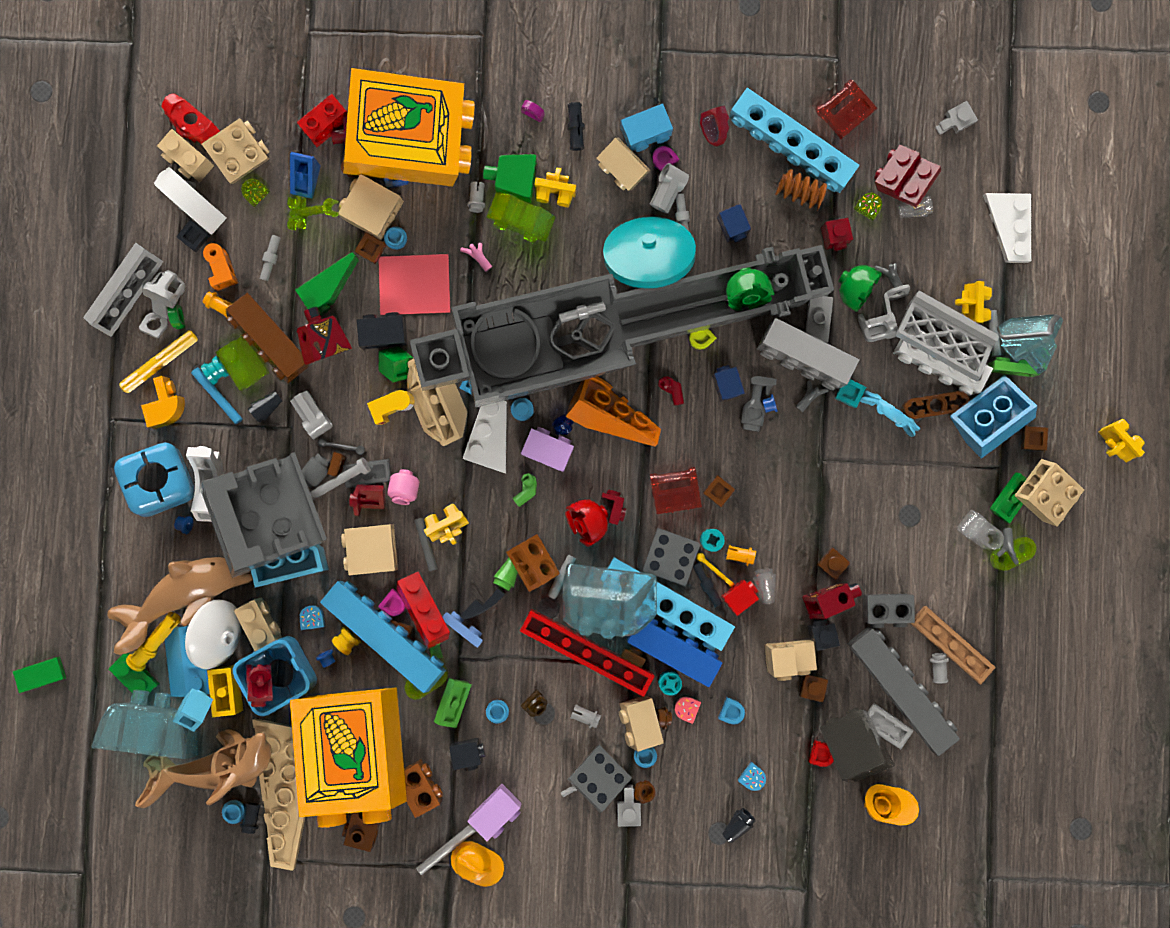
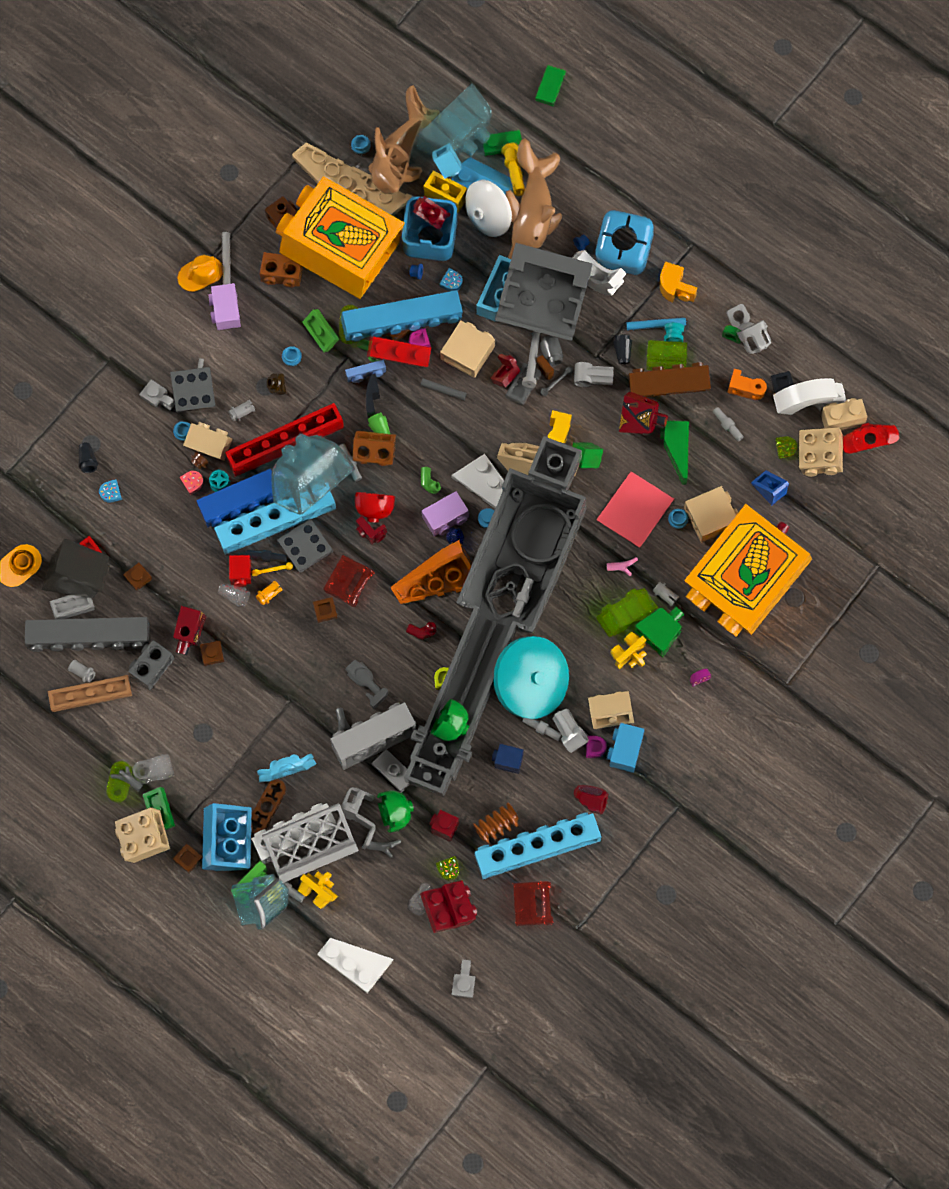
camera: 130 degrees right, 15 degrees down
(123, 290) = (776, 310): light grey brick -> none
(158, 361) = (709, 302): yellow axle -> none
(213, 301) = (721, 367): light orange pin -> none
(250, 818) = (348, 152): black pin -> none
(258, 623) = (474, 242): tan brick -> none
(299, 210) = (744, 464): clear neon green bar -> none
(322, 120) = (800, 524): red brick -> none
(346, 640) = (418, 289): yellow wheel -> none
(370, 248) = (681, 494): reddish brown plate -> none
(382, 331) = (616, 461): black brick -> none
(403, 487) = (494, 400): bright pink head -> none
(448, 527) = (443, 408): yellow hips -> none
(467, 754) = (279, 315): black brick -> none
(575, 126) = (665, 699): black pin -> none
(633, 655) = (256, 468): reddish brown plate -> none
(649, 792) = (156, 415): reddish brown plate -> none
(708, 540) = (296, 584): teal wheel -> none
(727, 383) = (396, 670): dark blue brick -> none
(731, 712) = (166, 510): dark azure tile -> none
(769, 404) = (358, 690): blue piece -> none
(790, 659) = (173, 572): tan brick -> none
(823, 634) = (168, 606): black brick -> none
(851, 393) = (323, 752): teal plate -> none
(1120, 441) = (126, 920): yellow hips -> none

